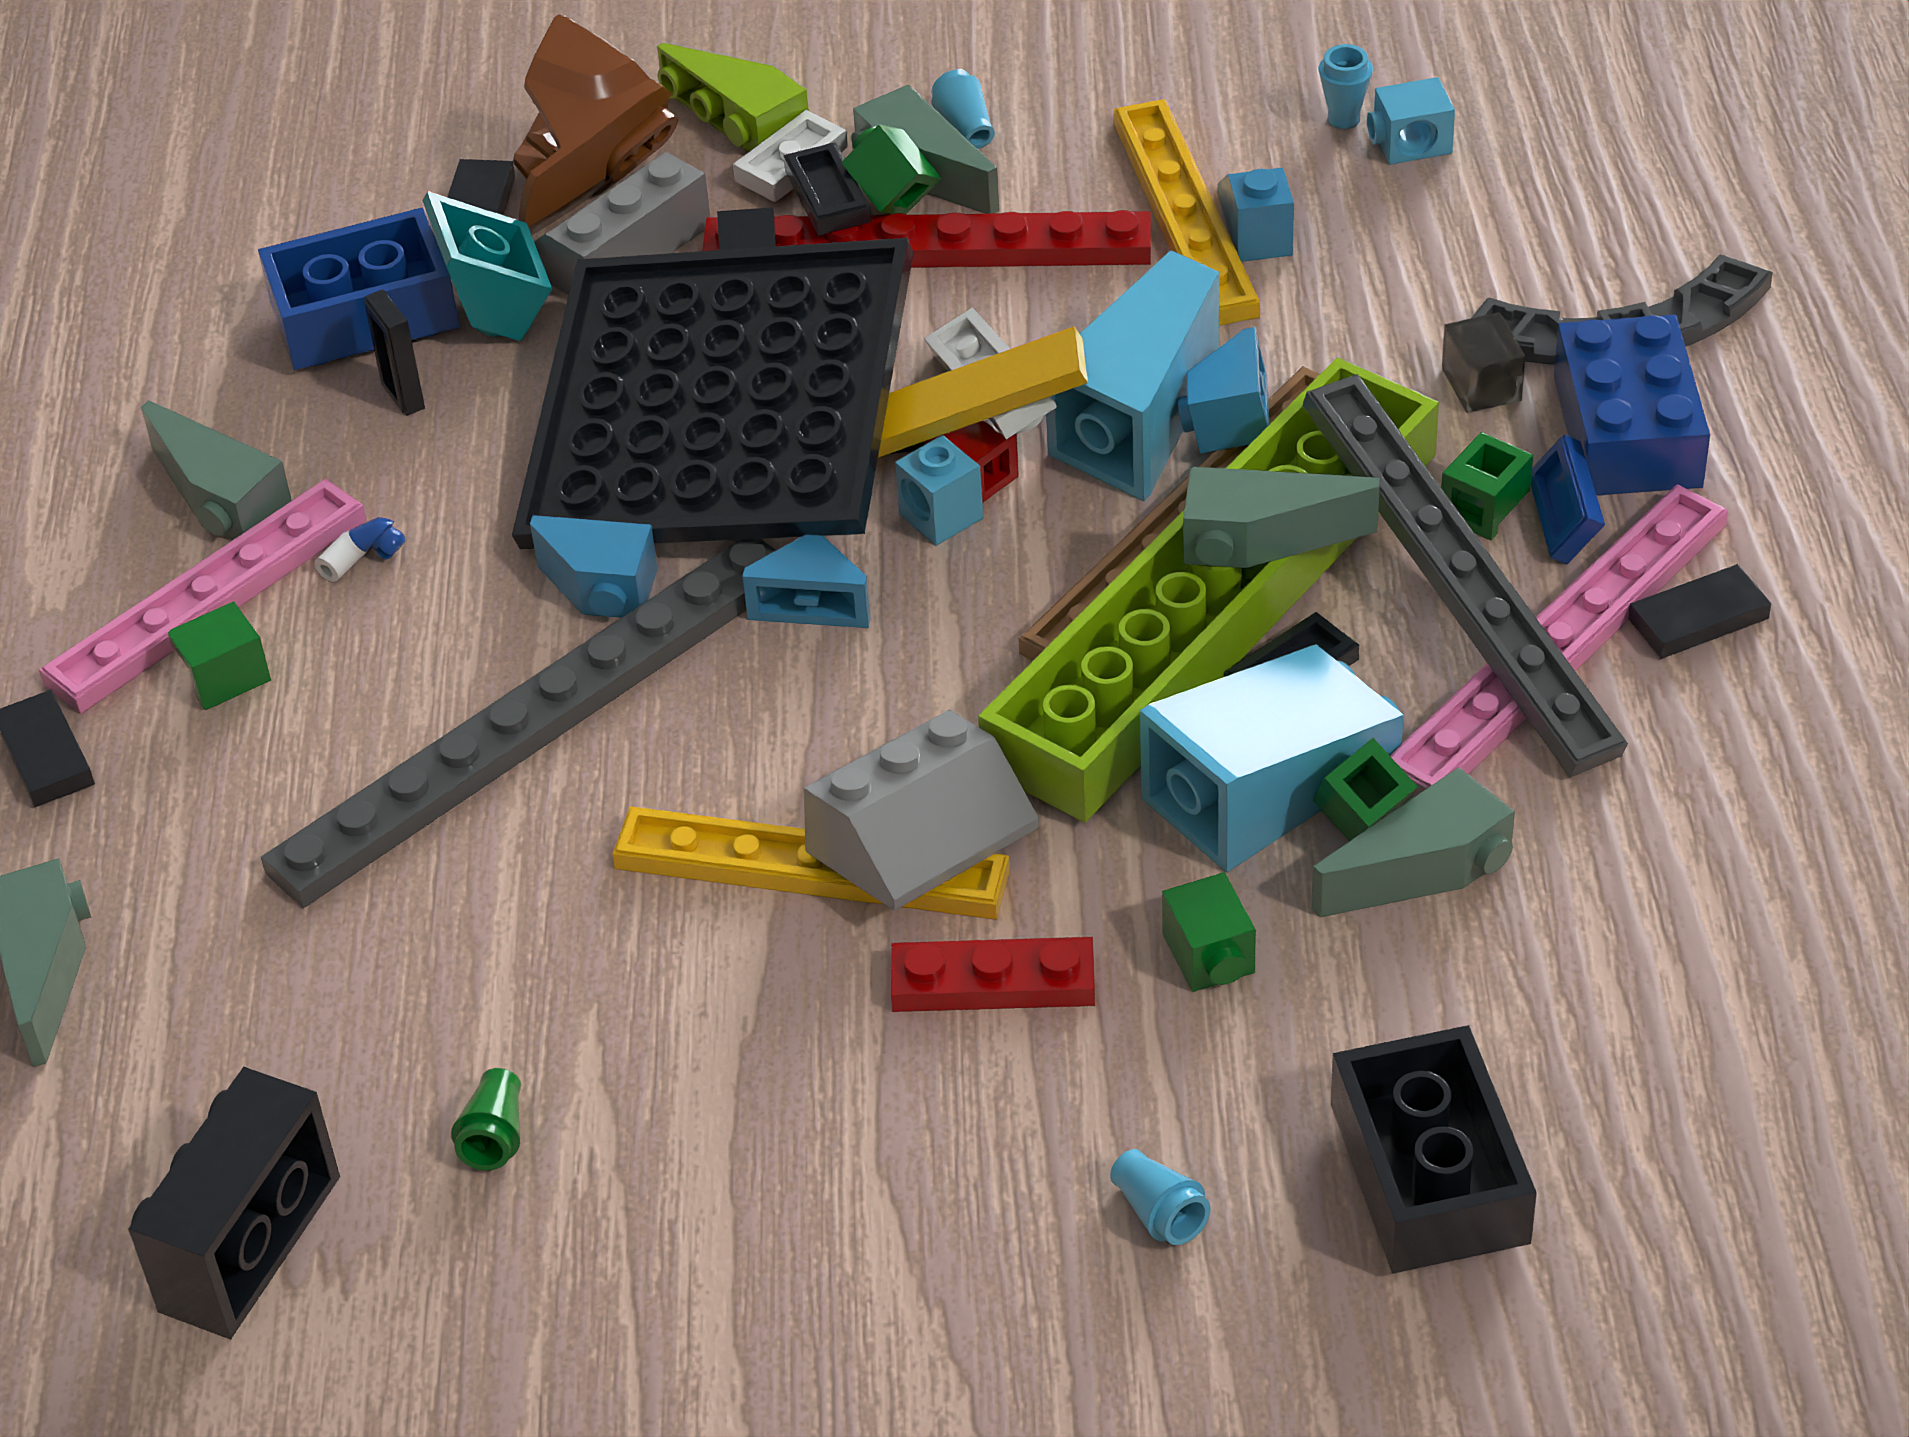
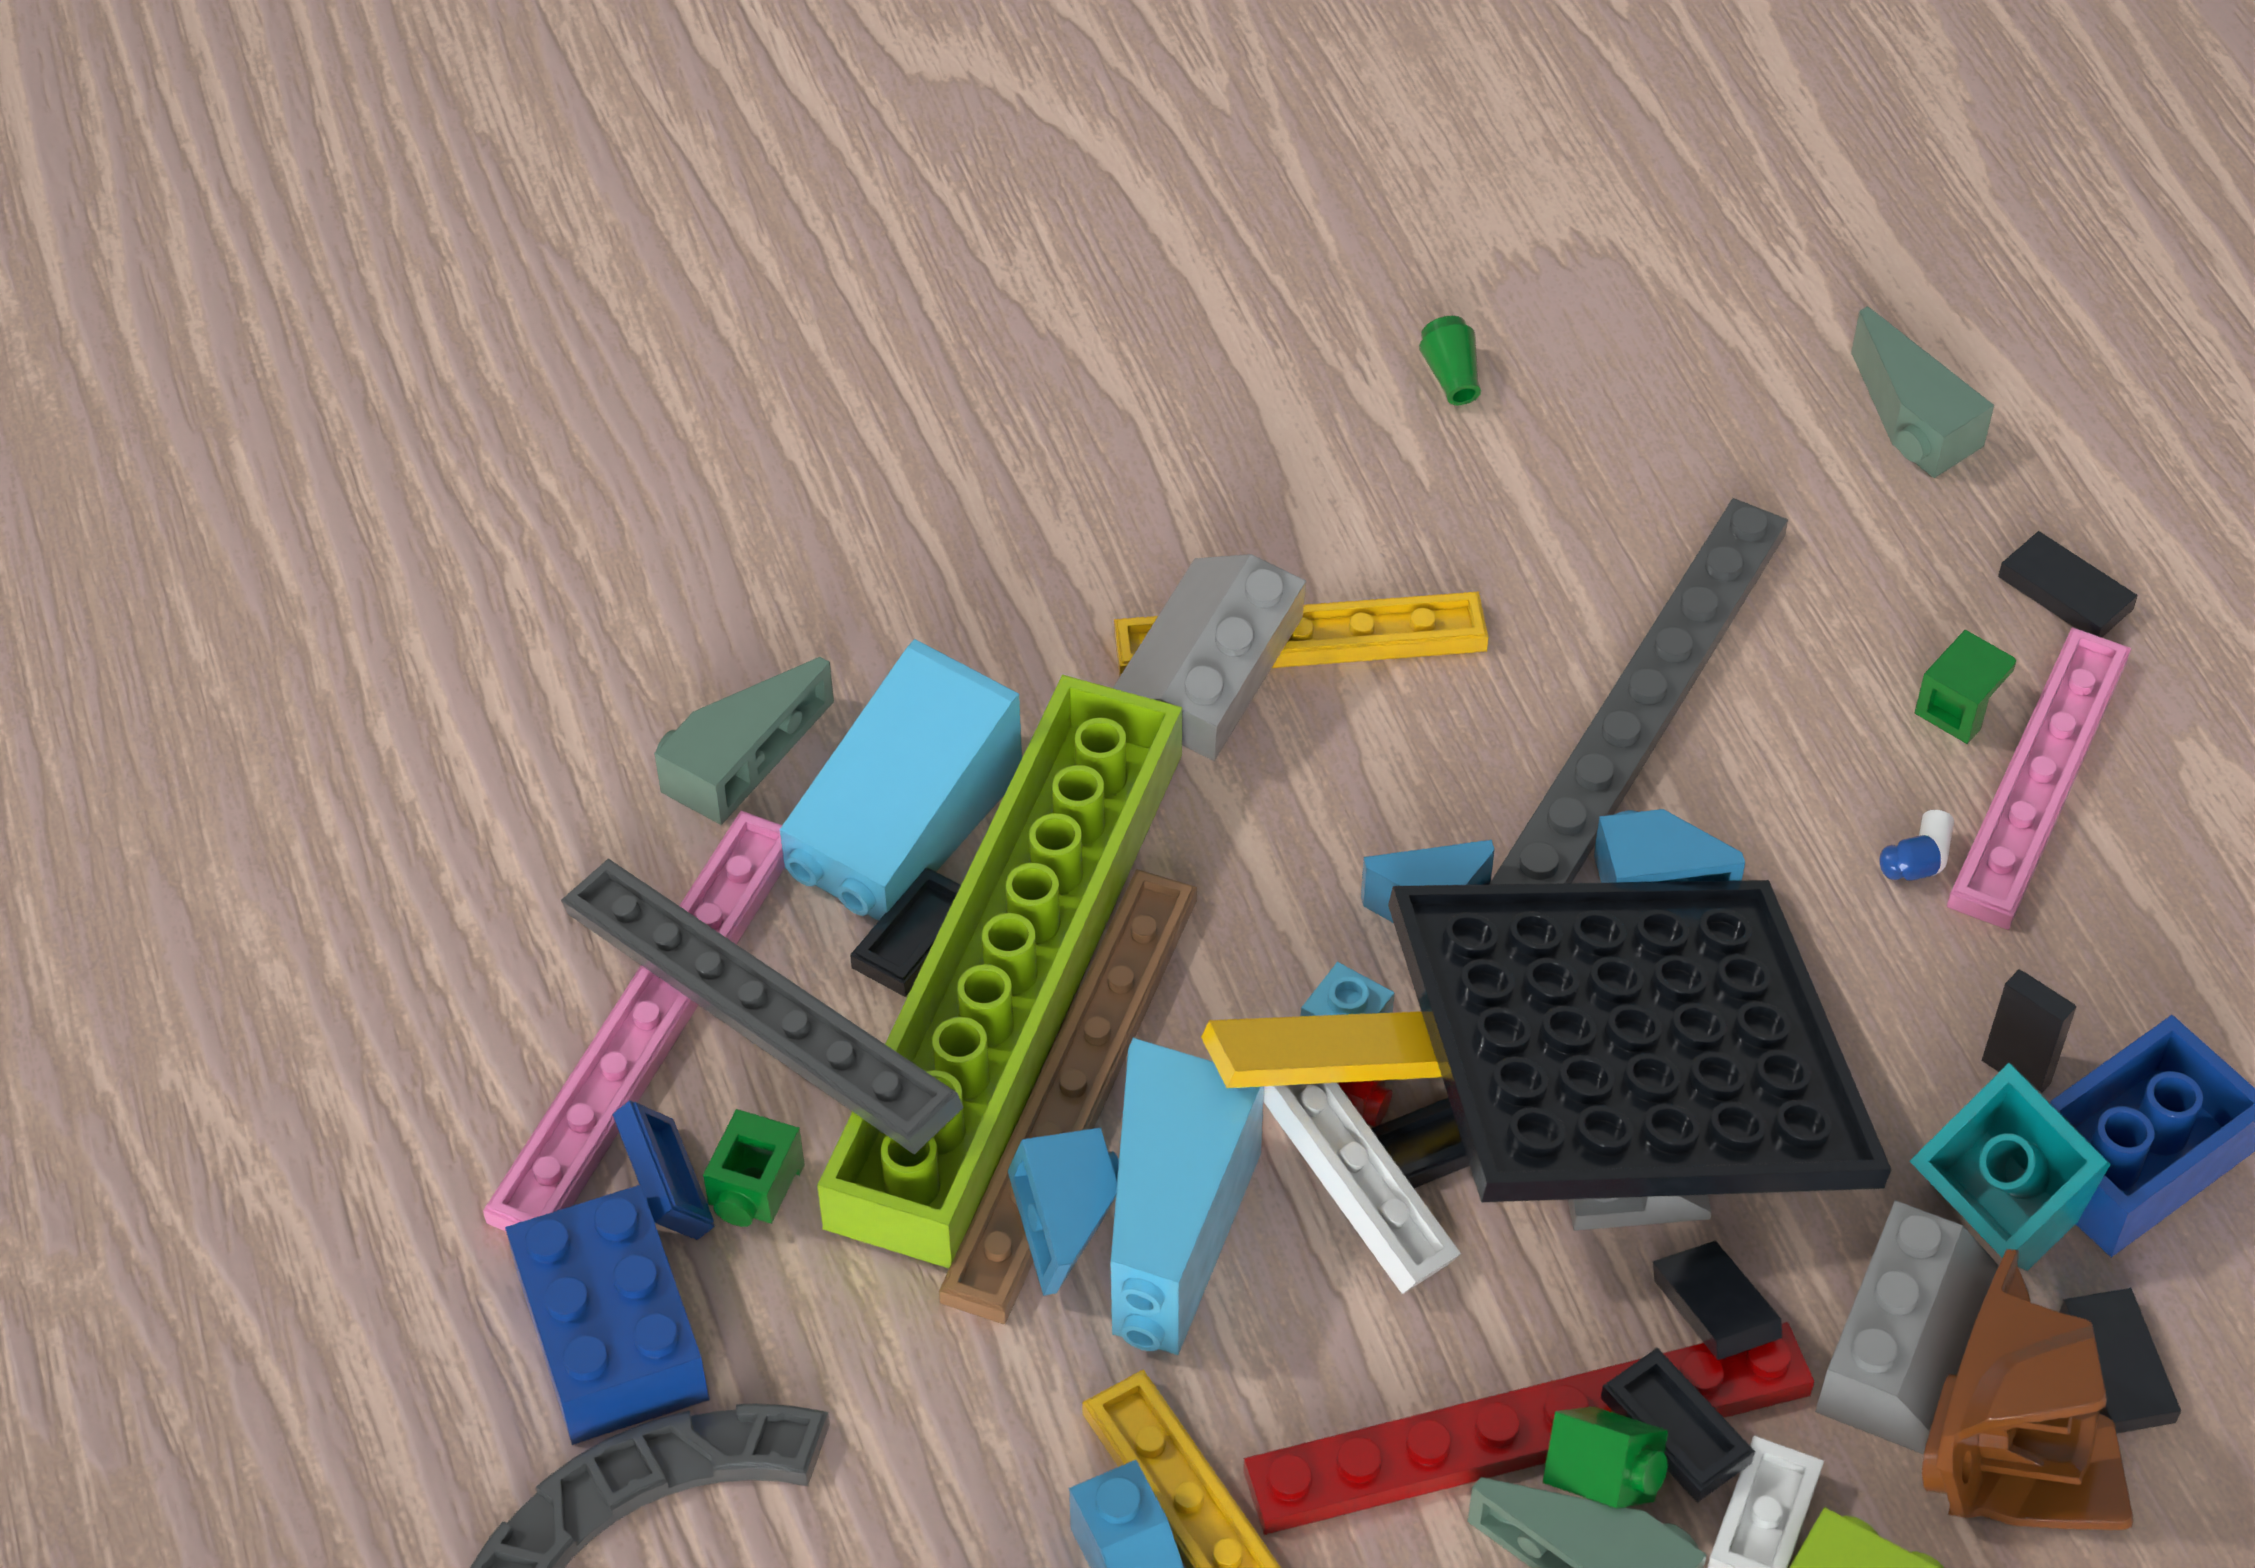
camera: 160 degrees right, 5 degrees up
(219, 477) = (2128, 881): sand green slope -> none
(235, 1202) = (1600, 225): black brick -> none
(992, 974) = (1094, 571): red plate -> none
(1163, 1199) = (888, 412): medium azure cone -> none
(1208, 932) = (912, 610): green brick -> none
(1270, 515) = (966, 941): sand green slope -> none
(1363, 790) = (794, 749): green brick -> none
(1432, 1149) = (677, 467): black brick -> none
(1483, 362) = (790, 1348): clear smoke brick -> none
(1699, 611) = (503, 1083): black tile -> none

